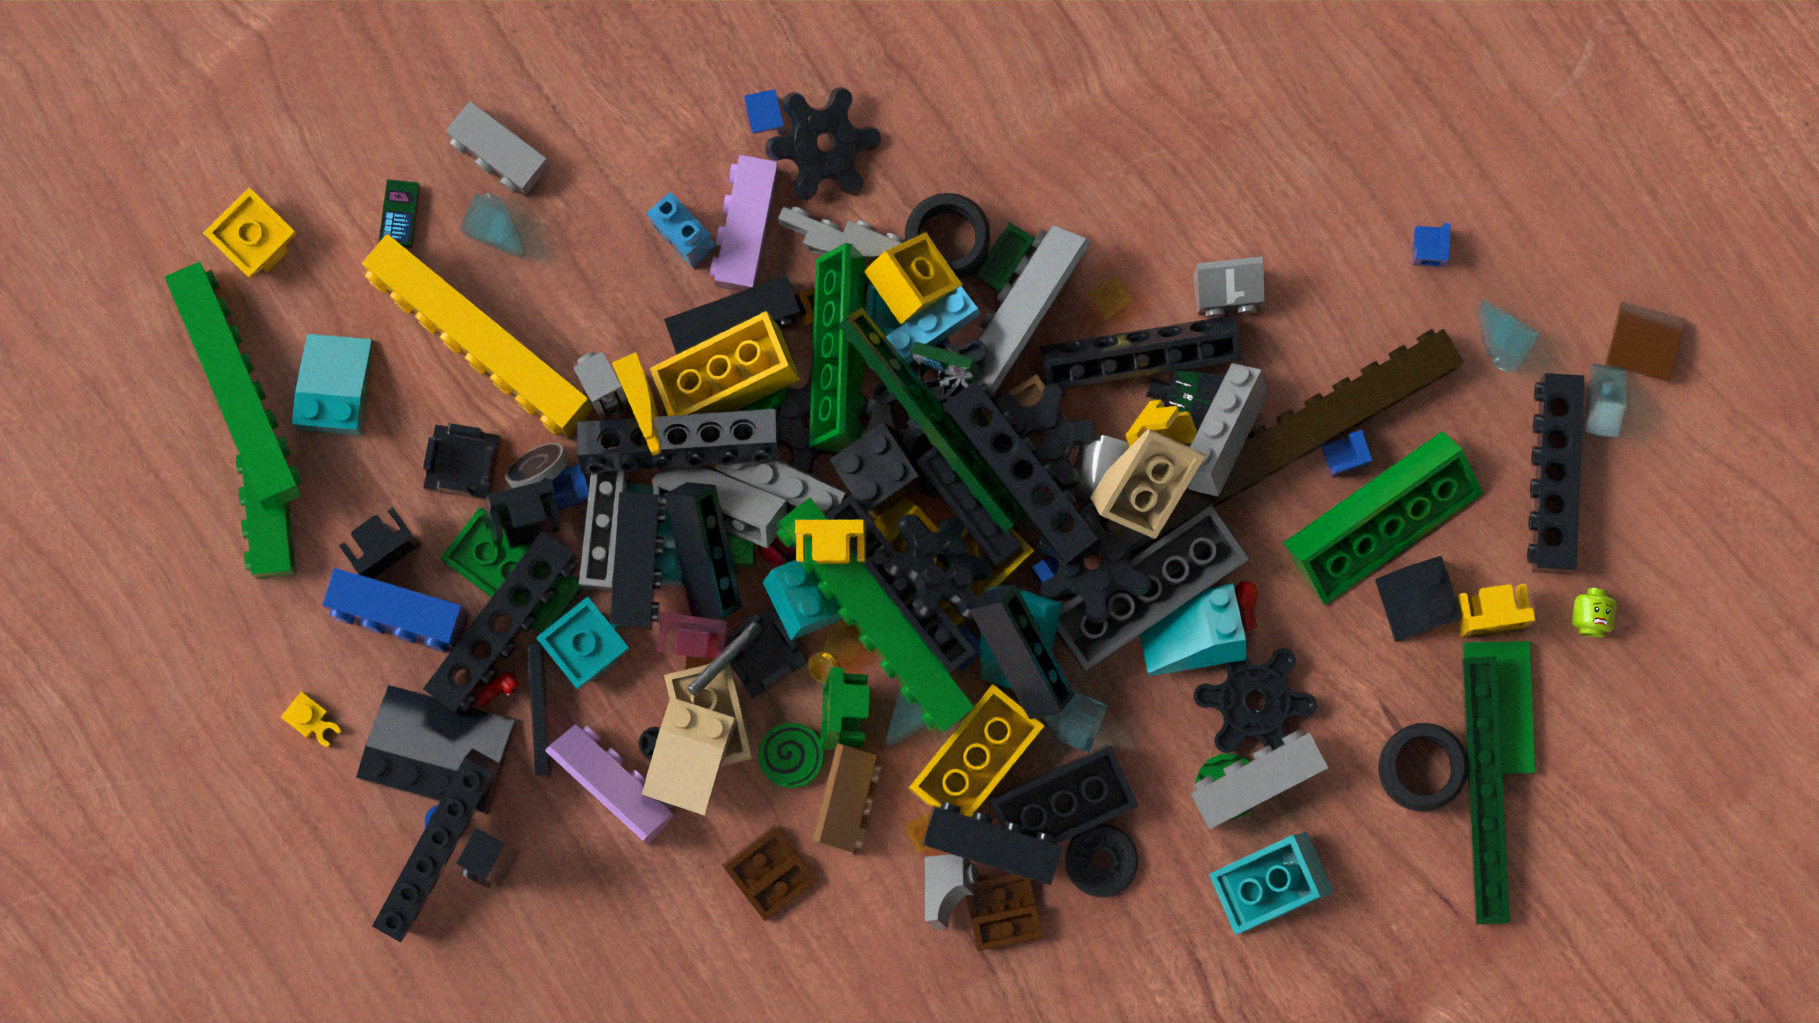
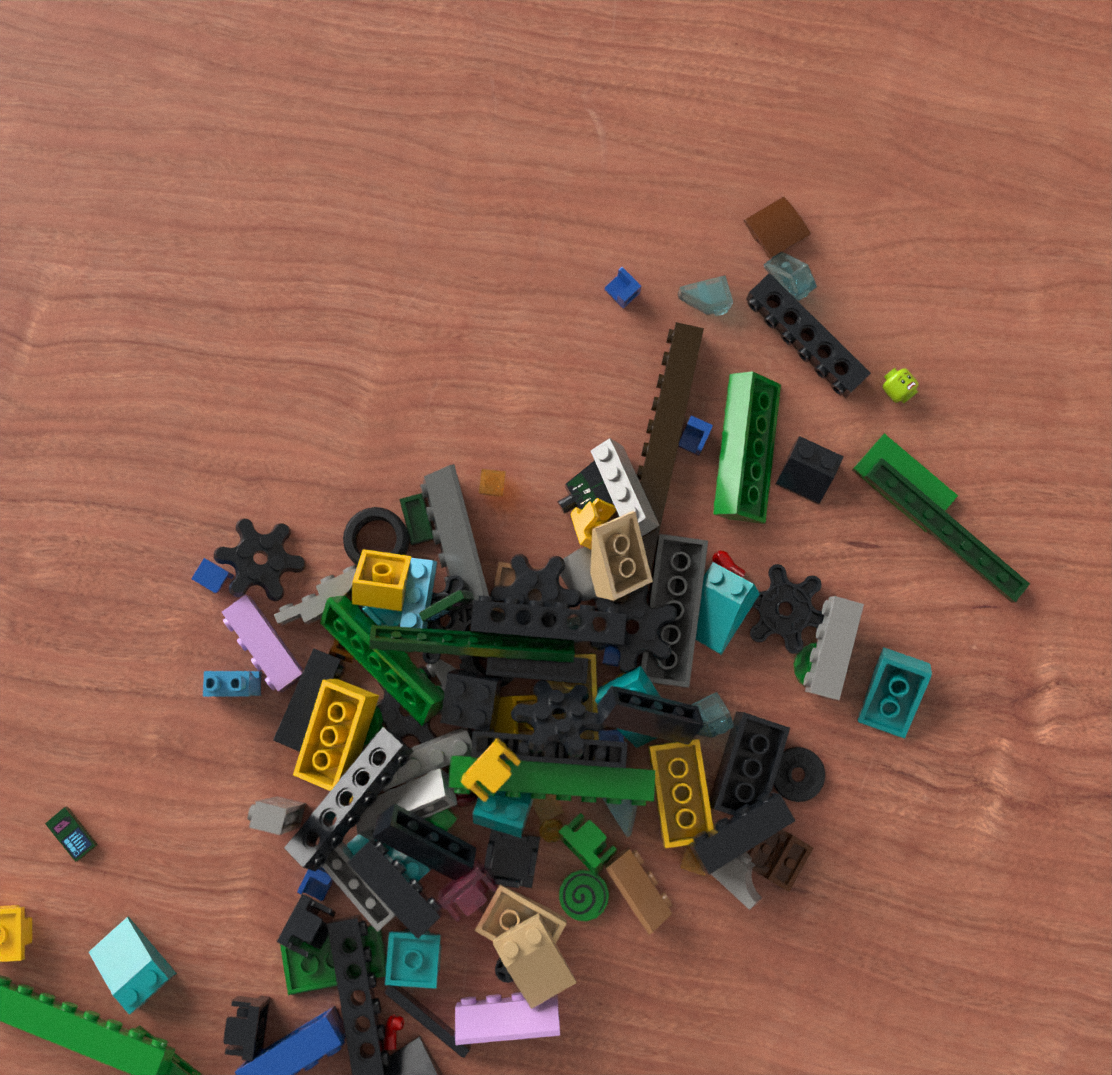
camera: 50 degrees left, 0 degrees up
(461, 461) = (244, 930): black panel -> none
(476, 335) = (177, 858): yellow brick -> none
(491, 224) = (127, 786): clear light blue slope -> none
(496, 149) = (87, 745): light grey brick -> none
(537, 464) = (287, 890): tile -> none
(640, 398) = (305, 800): yellow wedge -> none
(724, 658) = (497, 888): flat silver piece -> none
(769, 873) = (639, 969): reddish brown slope -> none
(1141, 352) = (538, 494): black brick -> none
(1229, 286) = (547, 413): light grey slope -> none
(1454, 751) = (924, 538): black tyre -> none
(1495, 610) = (855, 435): yellow panel -> none

